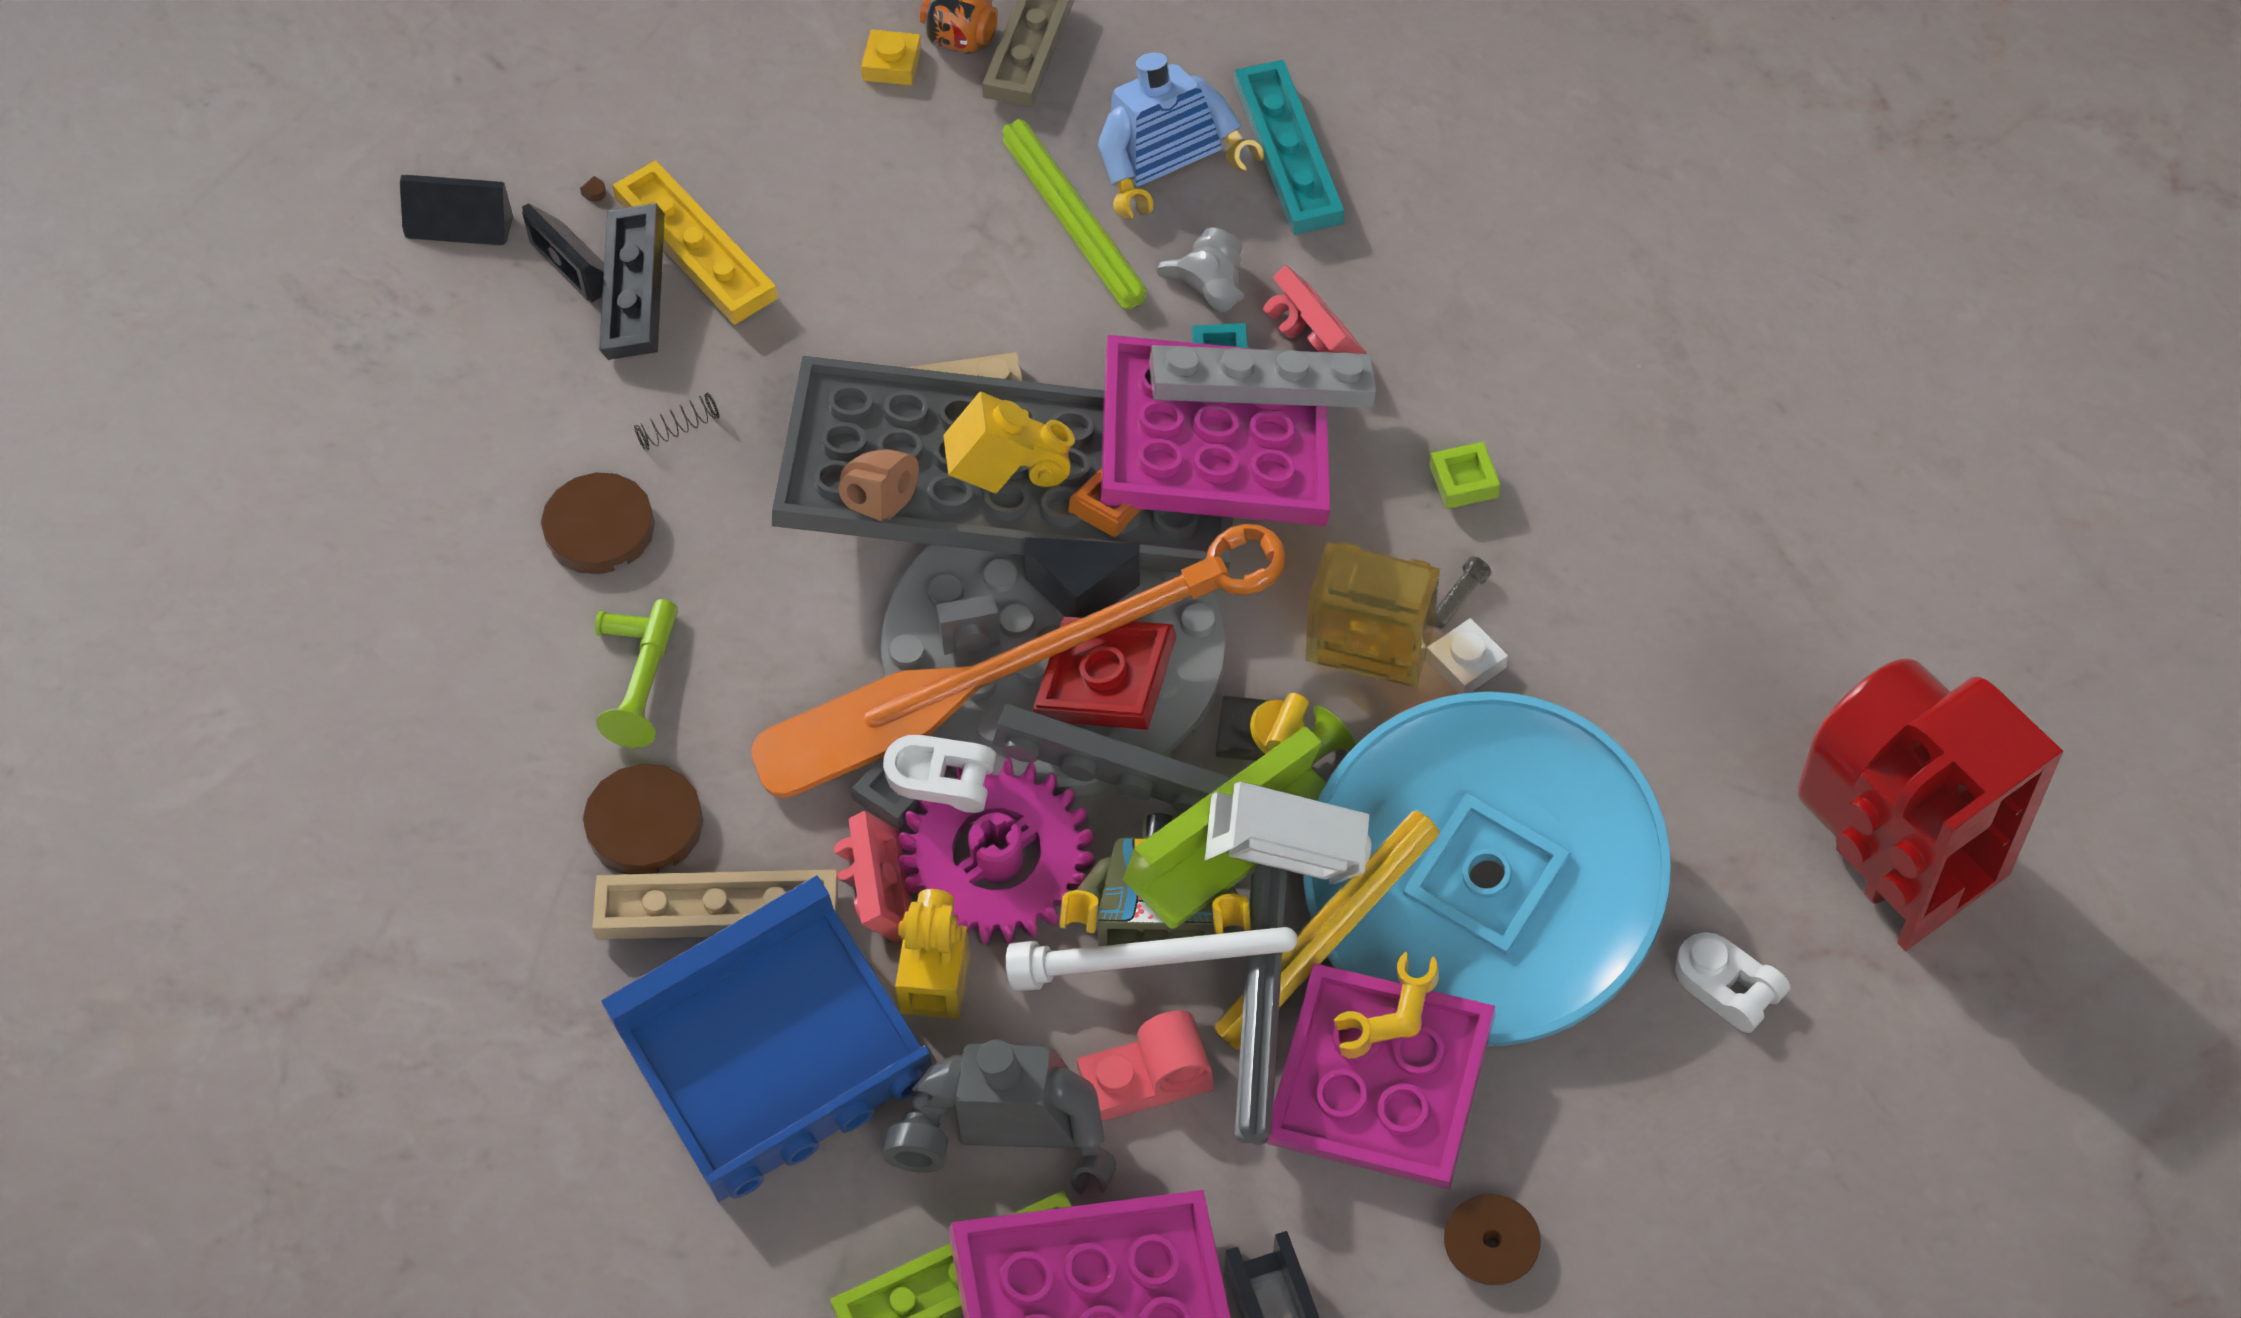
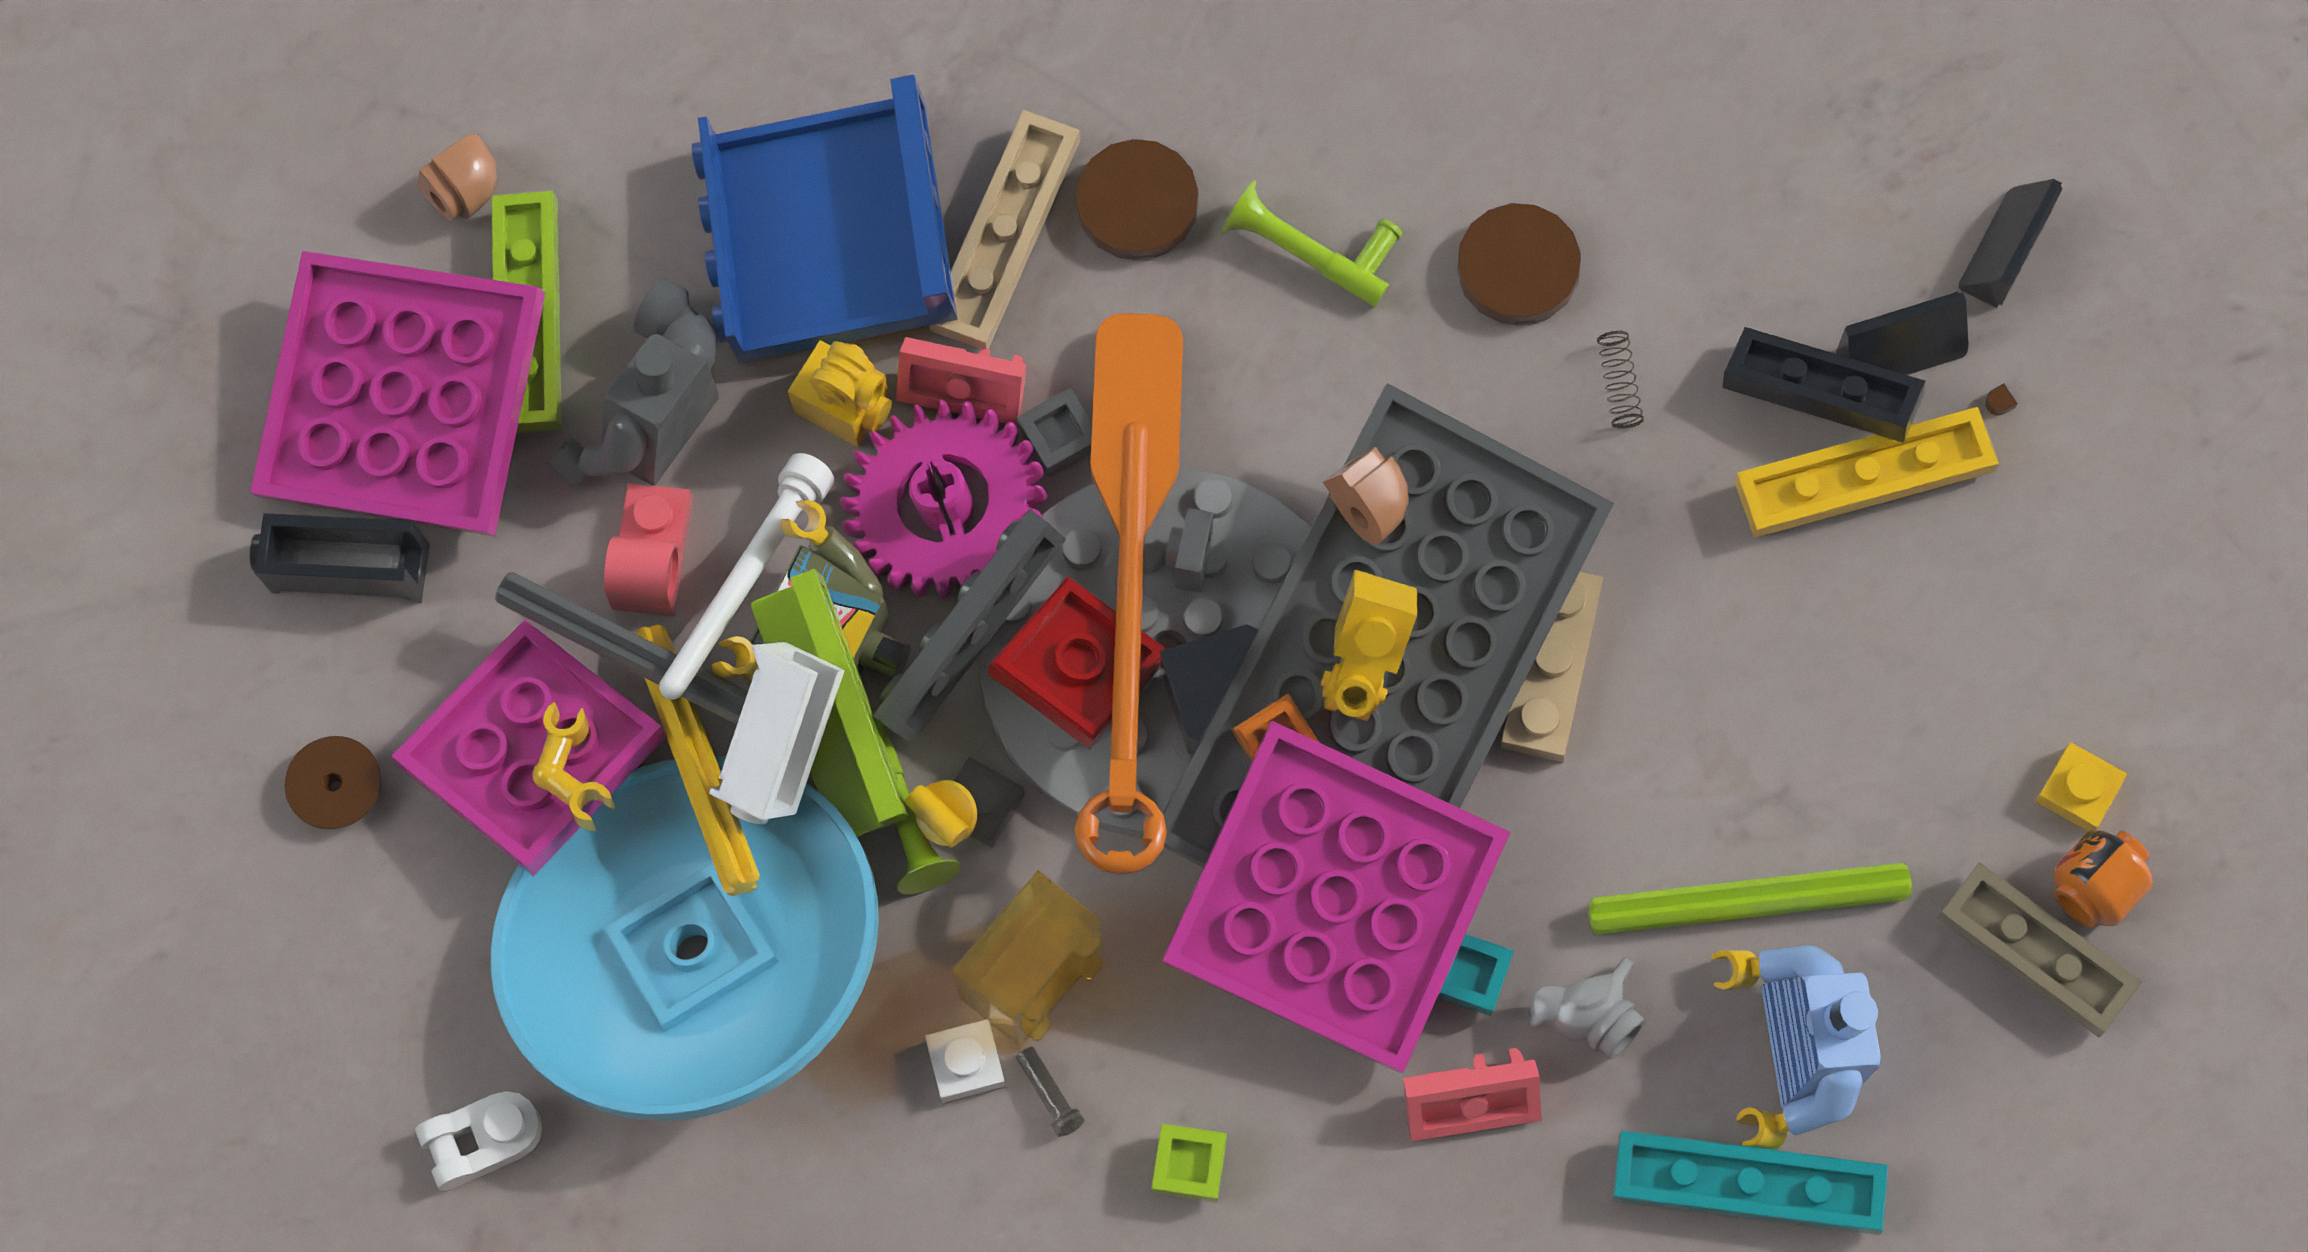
camera: 115 degrees right, 15 degrees up
(918, 765) = (1035, 433): white plate -> none
(1262, 376) = (1380, 973): light grey plate -> none

